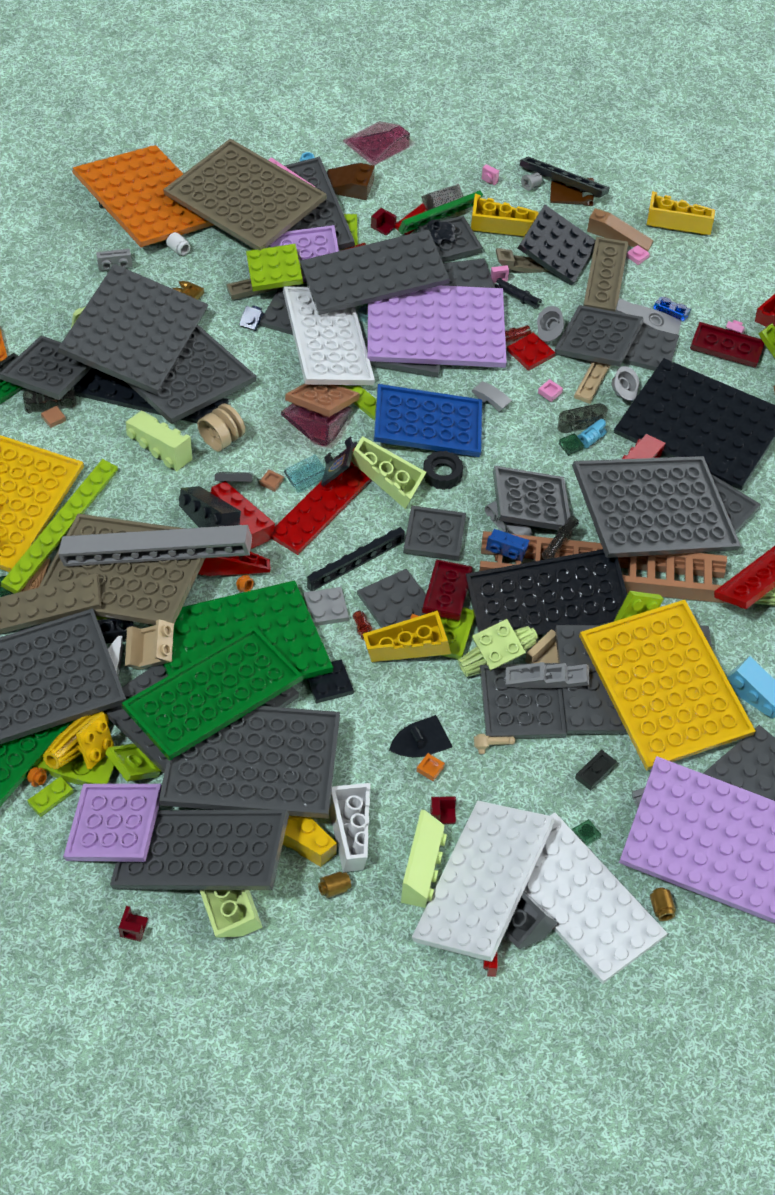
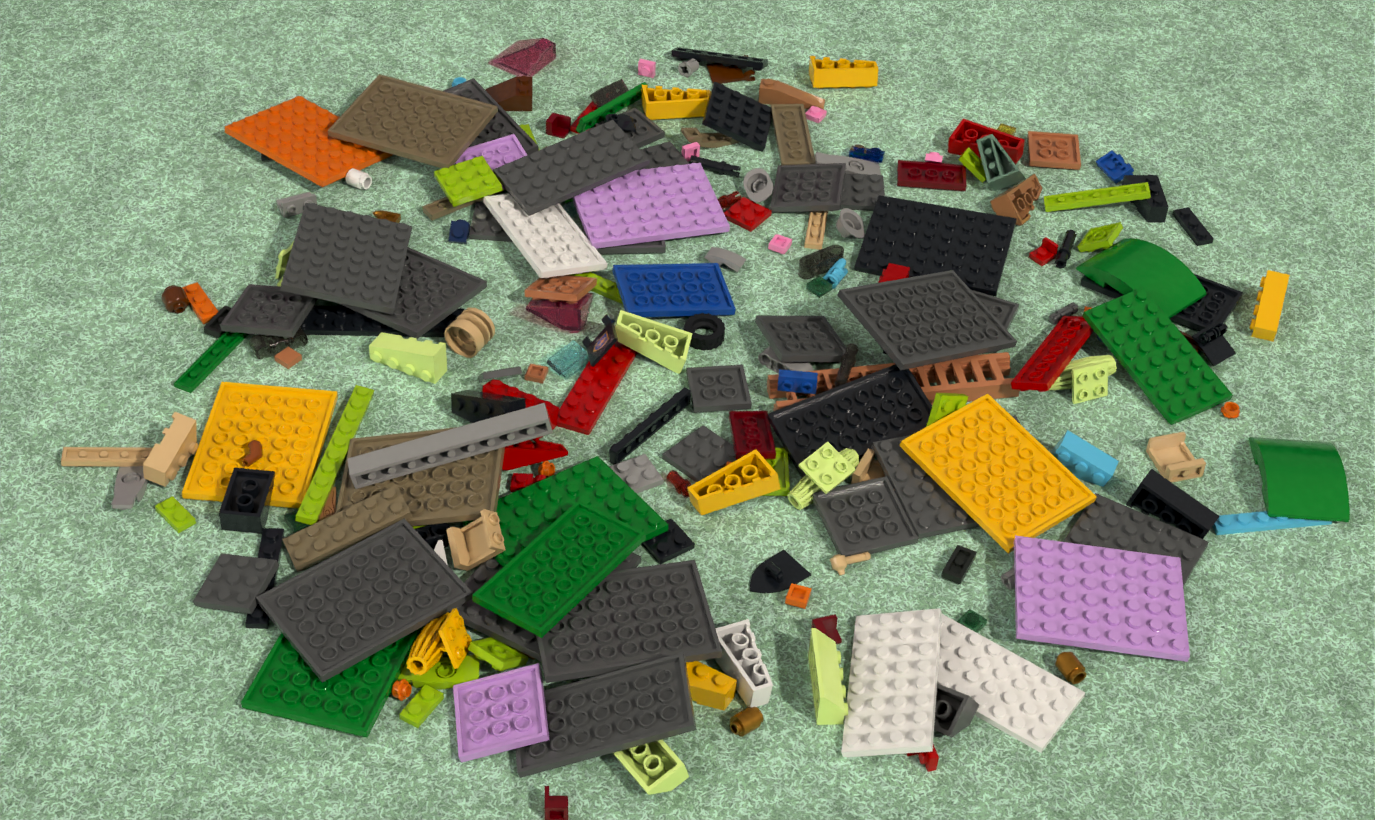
camera: 15 degrees left, 10 degrees down
(220, 589) = (522, 480): none -> red plate
(550, 676) = (881, 489): light grey slope -> none

